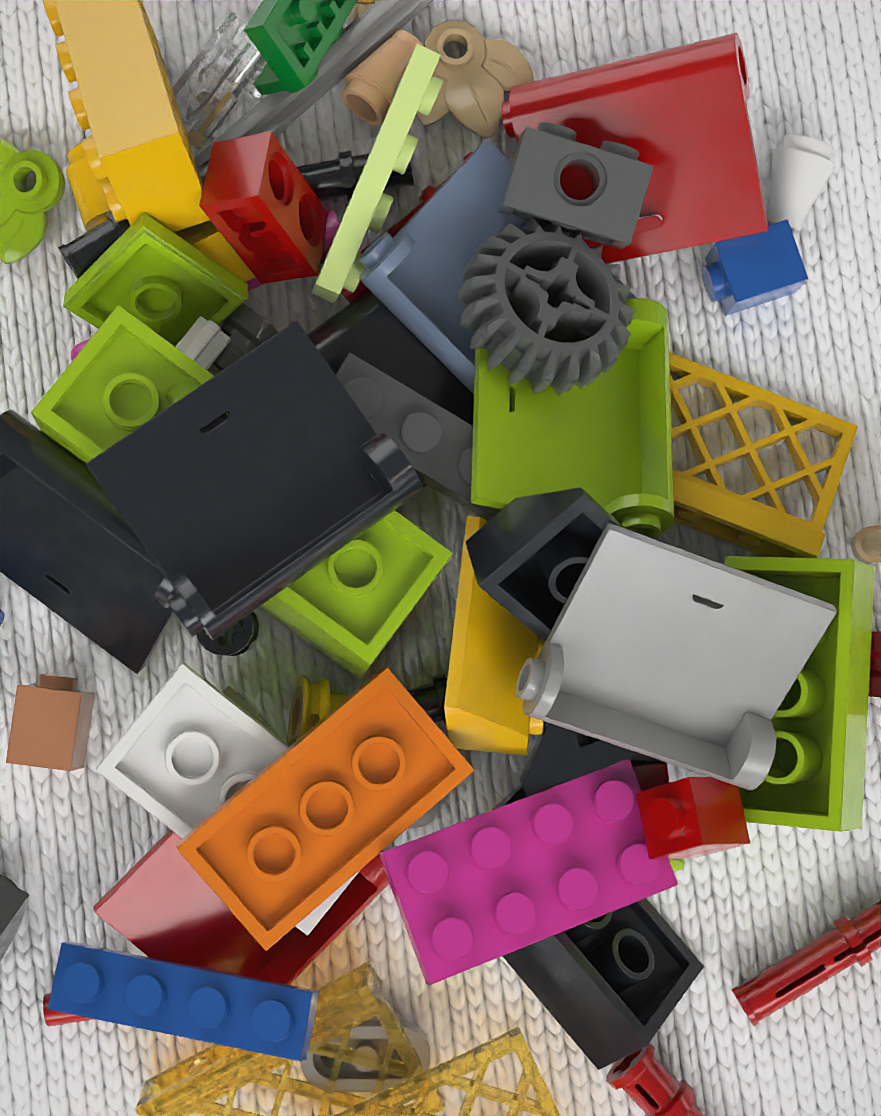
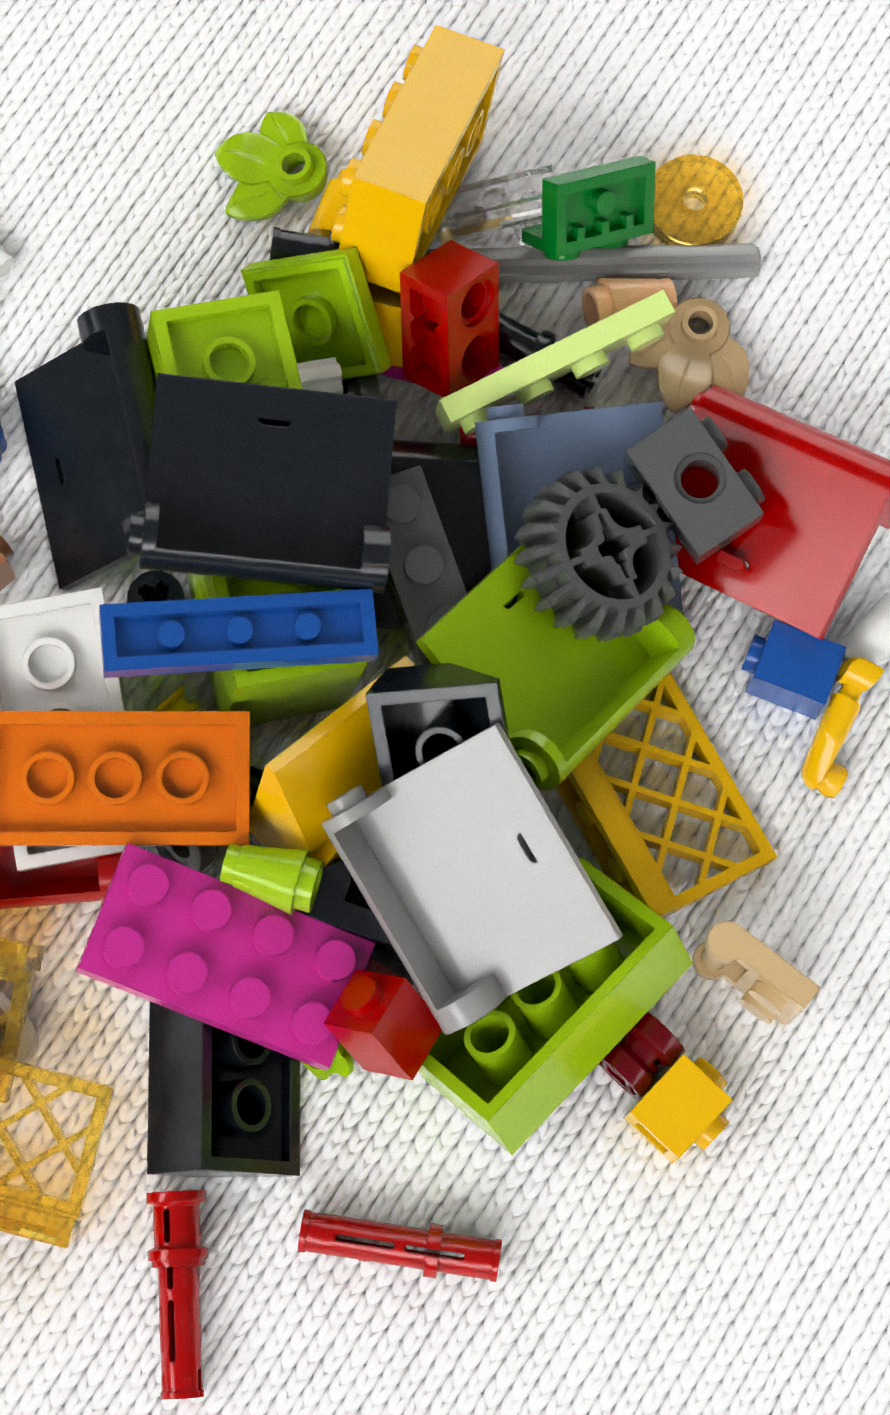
camera: 35 degrees right, 10 degrees down
(336, 624) = (237, 633): none -> blue plate
(516, 779) = (274, 875): none -> lime cone
(833, 325) = (819, 768): none -> yellow arm

